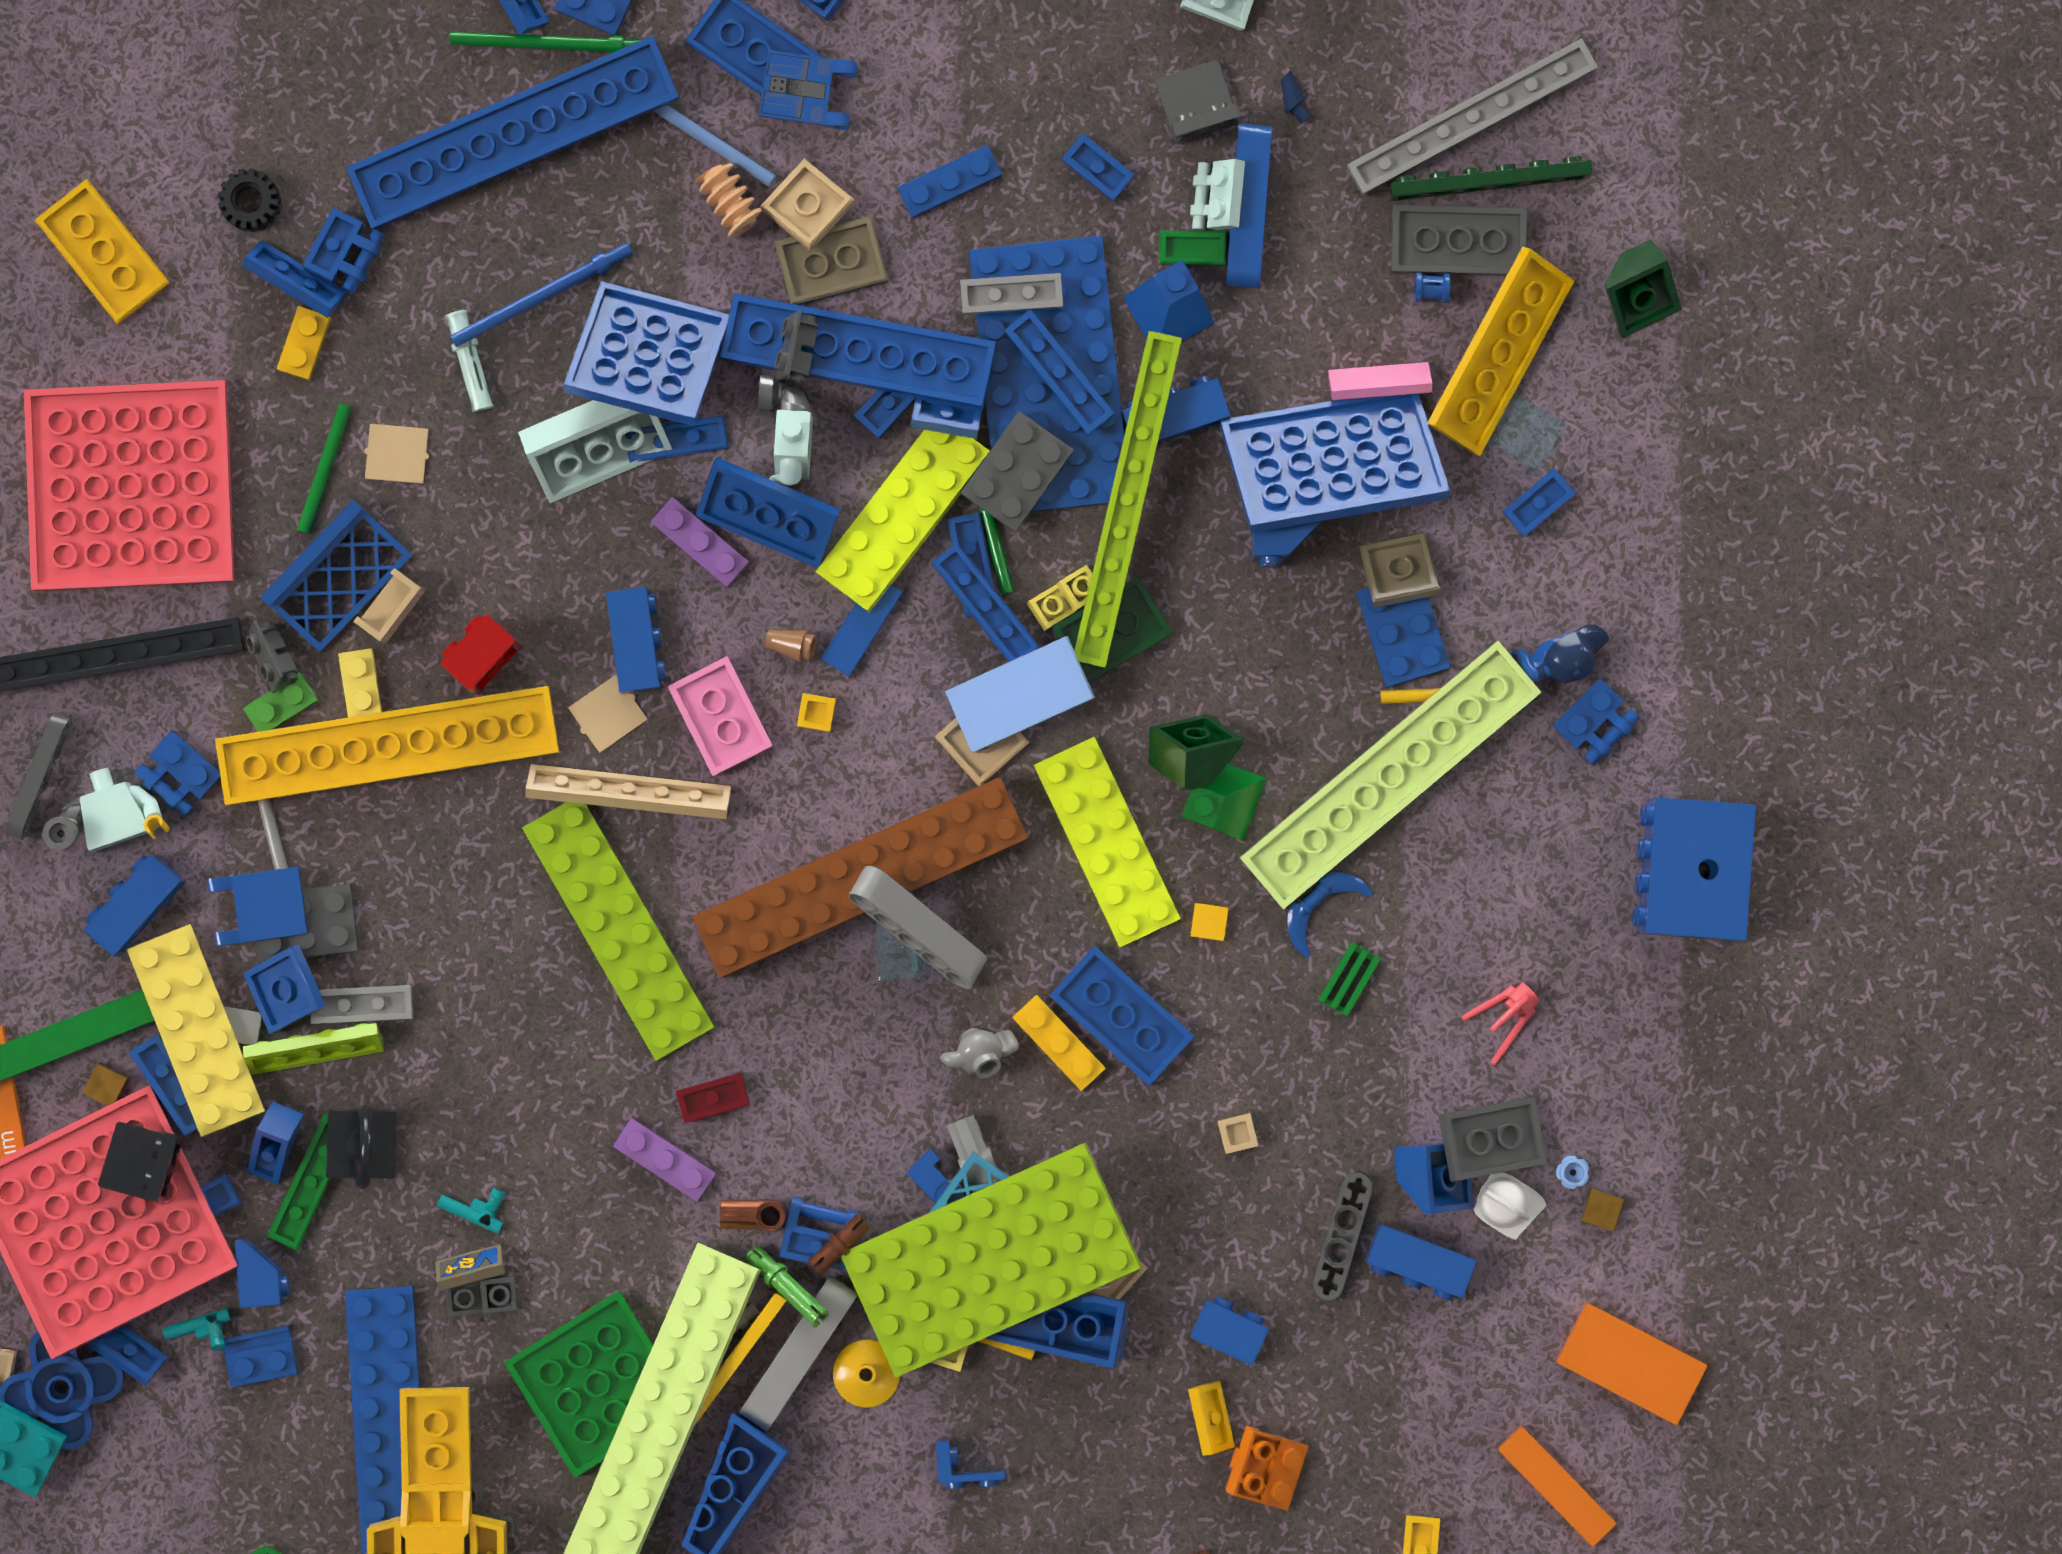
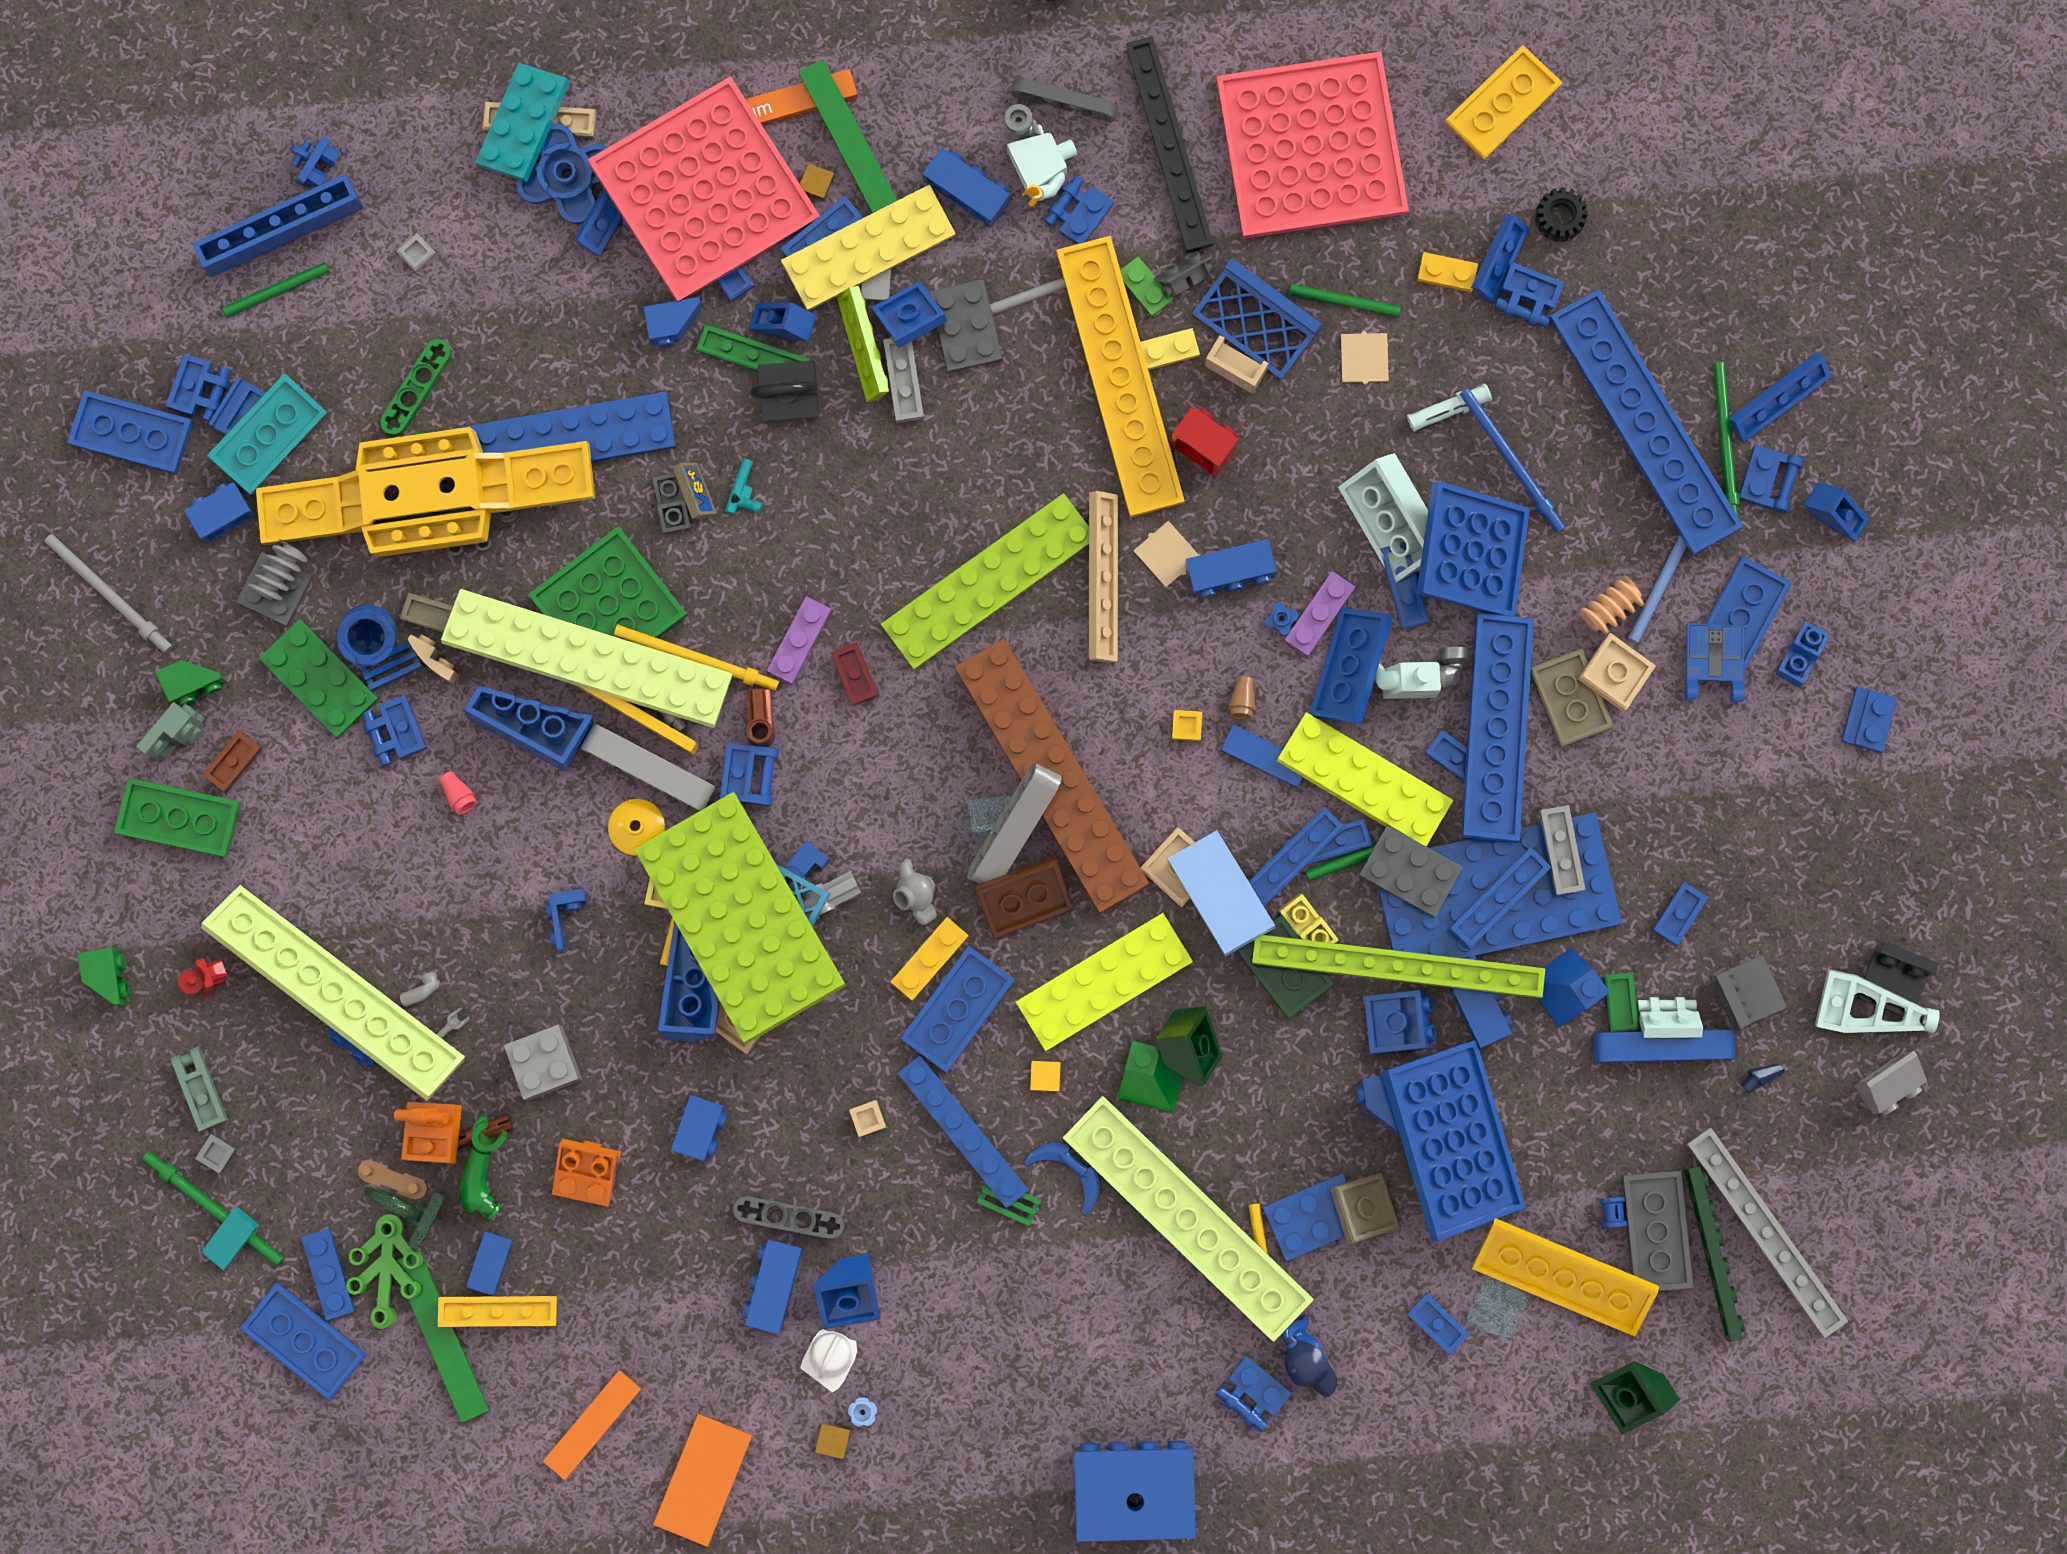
camera: 85 degrees right, 5 degrees down
(140, 1162) = (755, 213): black bracket -> none
(202, 1328) = (624, 281): teal hose -> none
(260, 1356) = (606, 330): blue plate -> none
(265, 904) = (976, 292): blue flag -> none
(700, 578) = (1281, 626): none -> blue plate
(701, 1222) = (749, 675): none -> yellow bar
(720, 716) = (1175, 646): bright pink plate -> none
(776, 1276) = (709, 743): bright green pin -> none
(791, 359) = (1483, 671): dark grey hinge -> none
(839, 1244) = (741, 790): copper pin -> none
(945, 417) = (1449, 806): blue plate -> none
(949, 181) = (1651, 790): blue plate -> none
(999, 925) = (1024, 897): none -> reddish brown tile
(1134, 1507) = (543, 1062): none -> light grey brick
(1189, 505) = (1399, 1021): none -> blue plate
(1211, 1418) = (624, 1120): yellow plate -> none
(1264, 1024) = (963, 1131): none -> blue plate
(1380, 381) = (1526, 1175): bright pink tile -> none
(1492, 1139) = (883, 1338): dark grey plate -> none
(1520, 1002) = (1004, 1350): coral plant -> none

